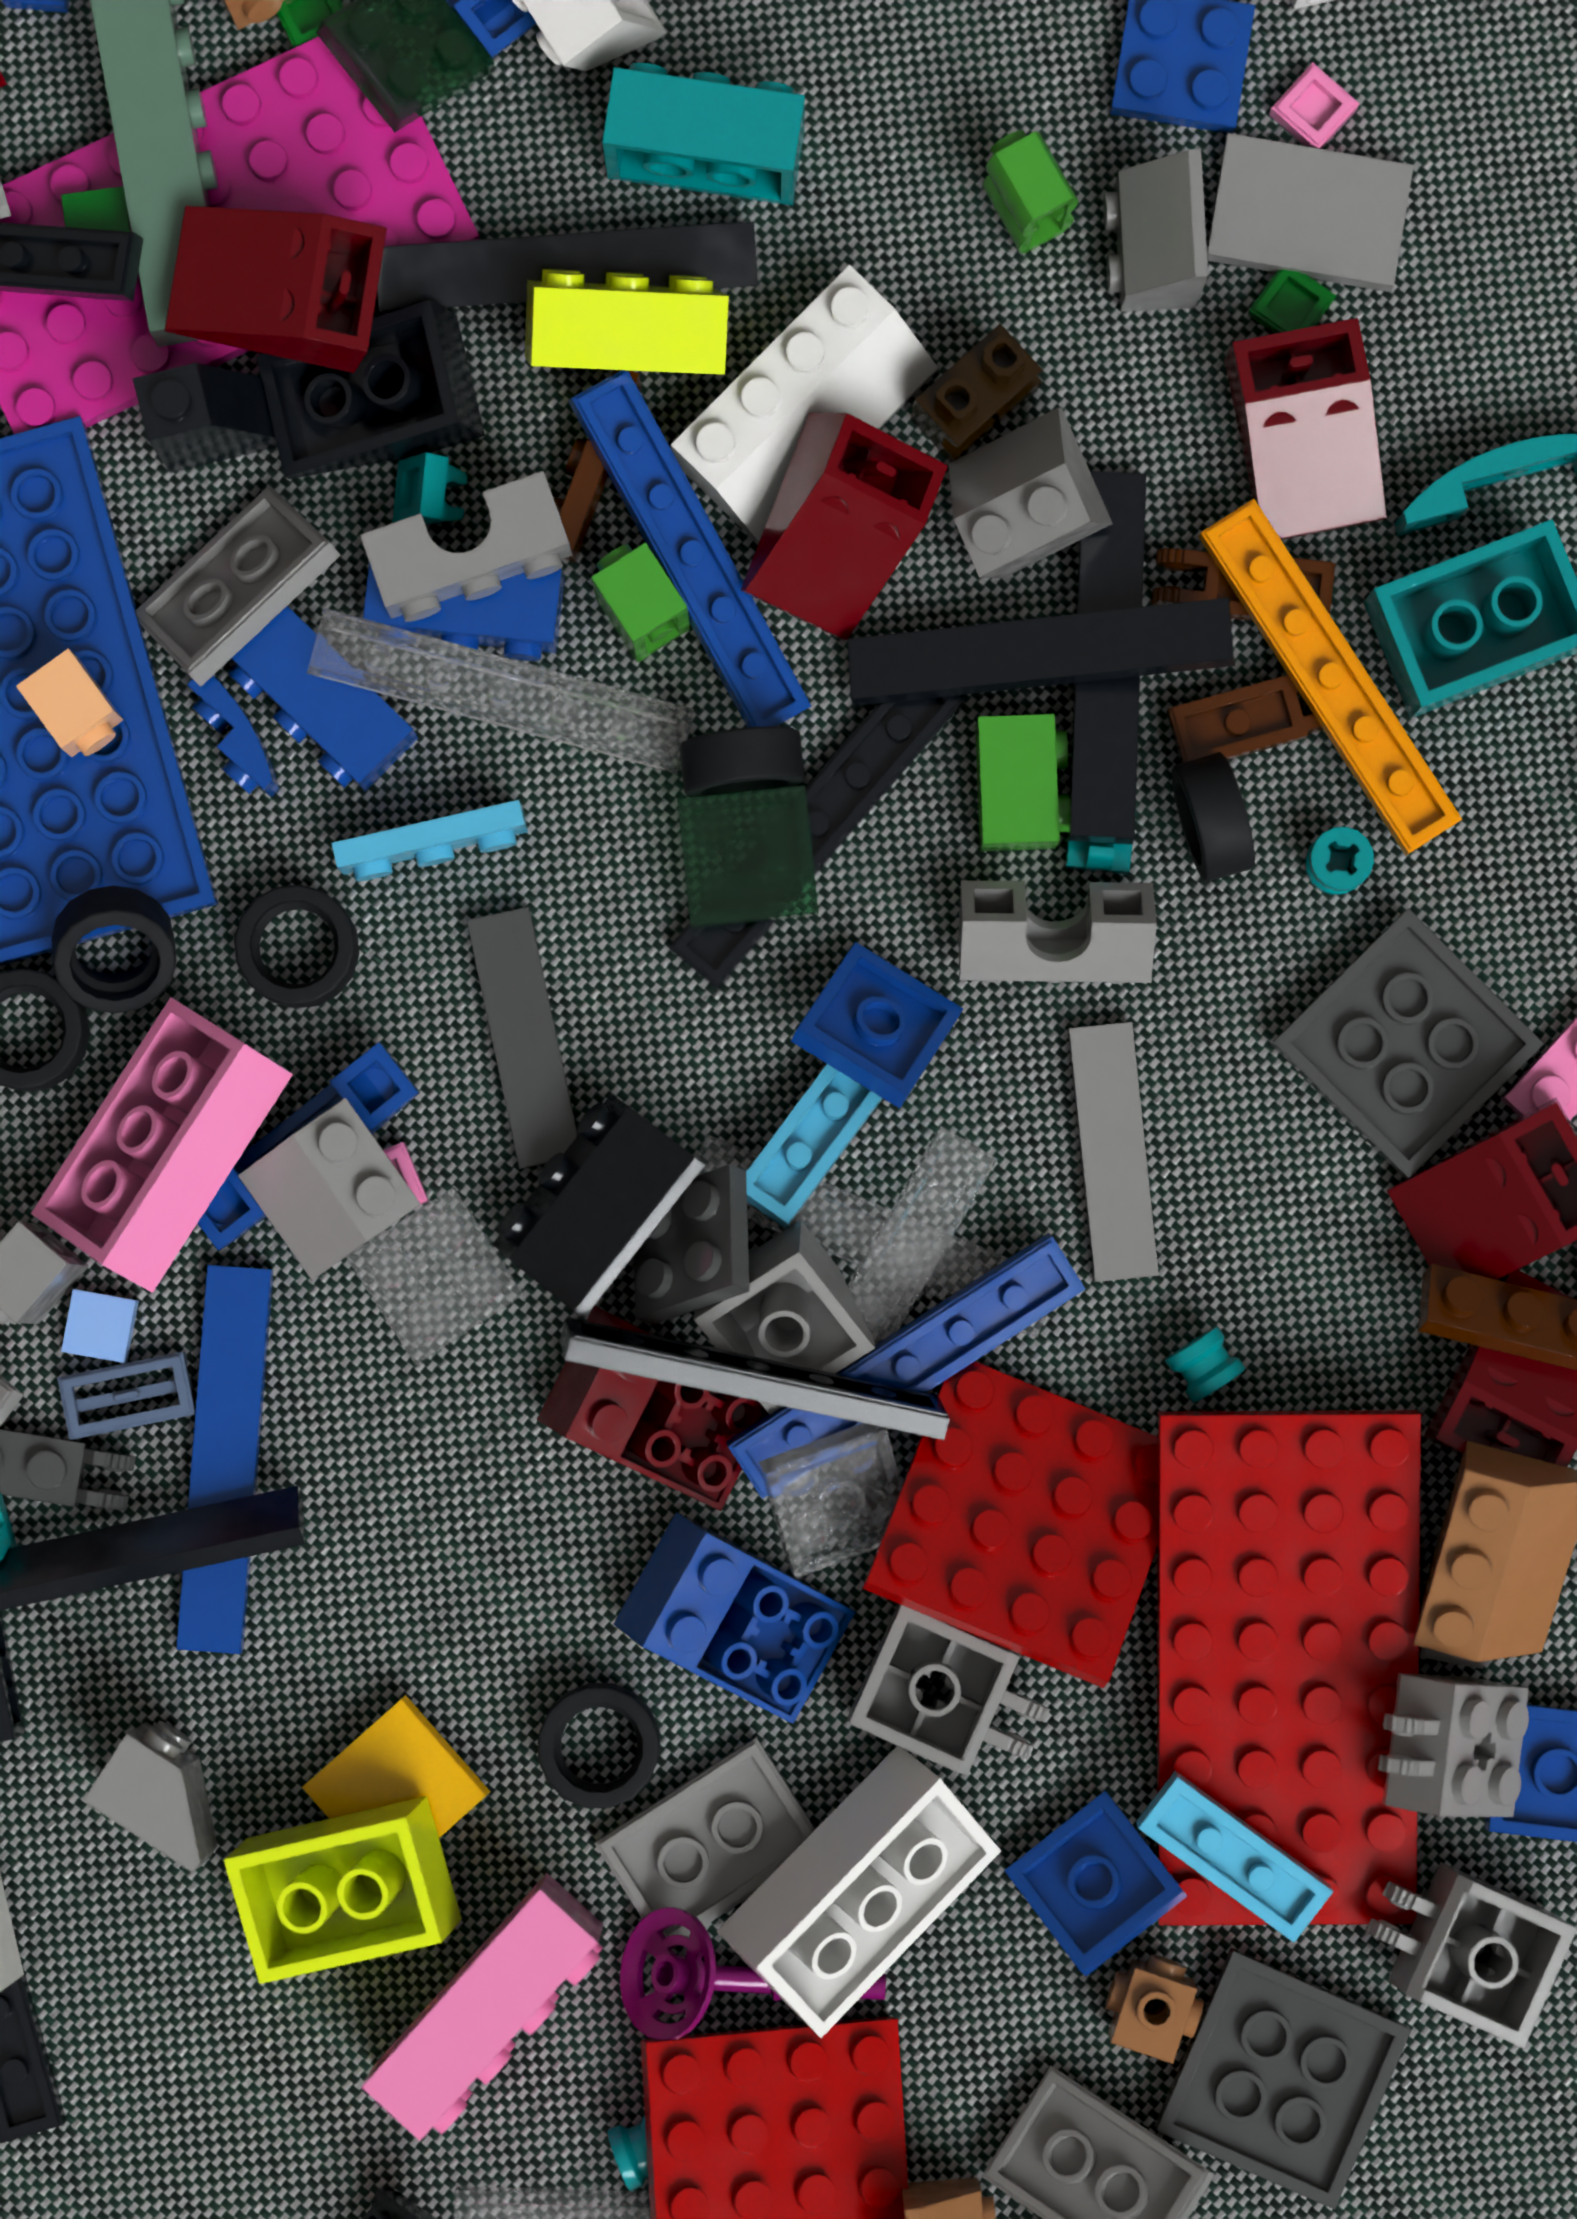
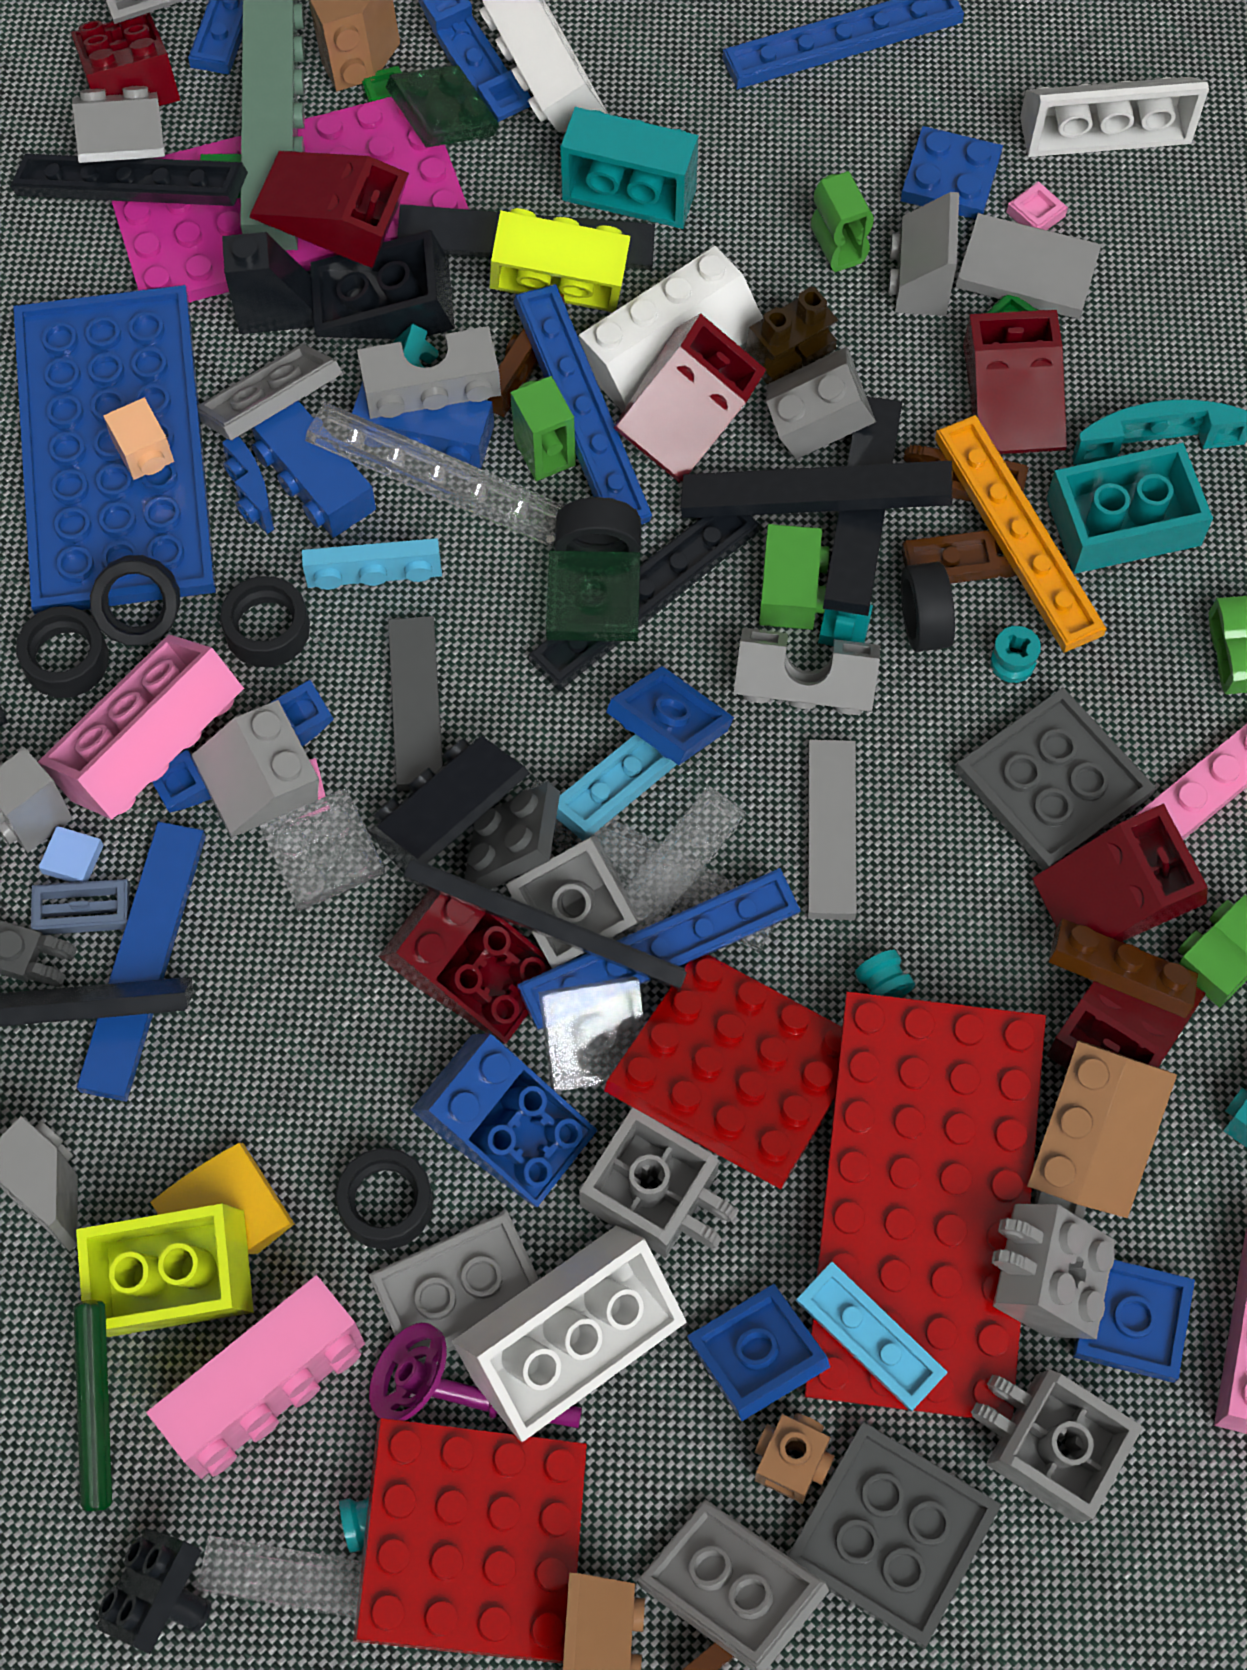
camera: 10 degrees right, 20 degrees down
(286, 2065) = (92, 1405): none -> dark green axle

